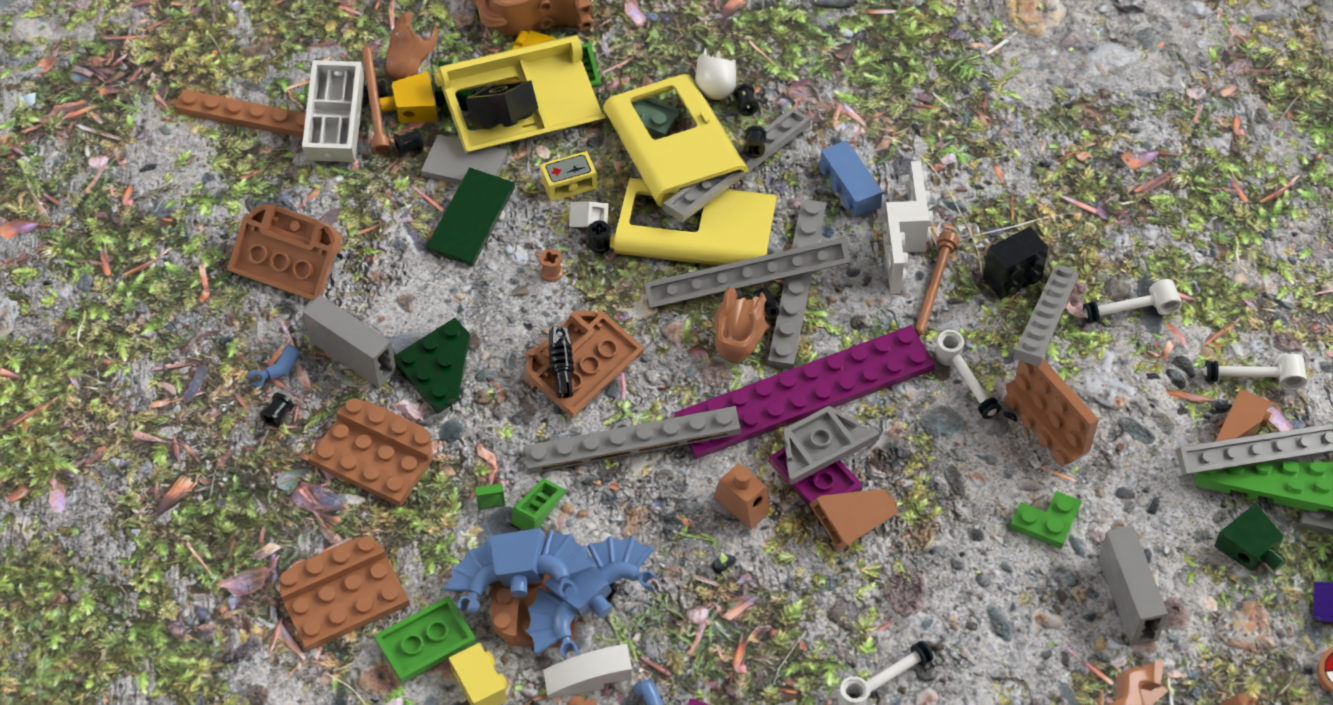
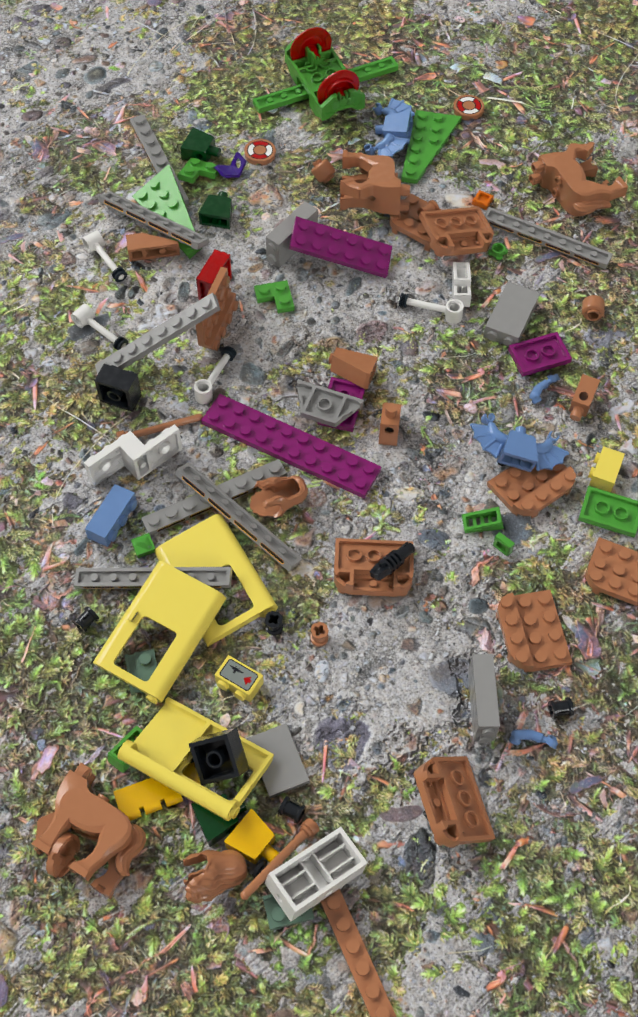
camera: 130 degrees left, 5 degrees up
(437, 364) = (443, 647): dark green plate -> none
(471, 216) = (320, 714): dark green tile -> none
(518, 561) = (538, 480): medium blue torso -> none
(585, 213) = (261, 643): white panel -> none
(588, 671) = (550, 420): white slope -> none
(632, 439) = (403, 500): light grey plate -> none
(715, 76) = (85, 642): white helmet -> none
(754, 144) = (132, 571): black bush -> none
(771, 304) = (245, 496): black arm -> none
(792, 190) = (143, 545): none -> bright green tile
(1059, 620) = (340, 247): none -> magenta plate
(1120, 453) = (210, 270): none -> red window

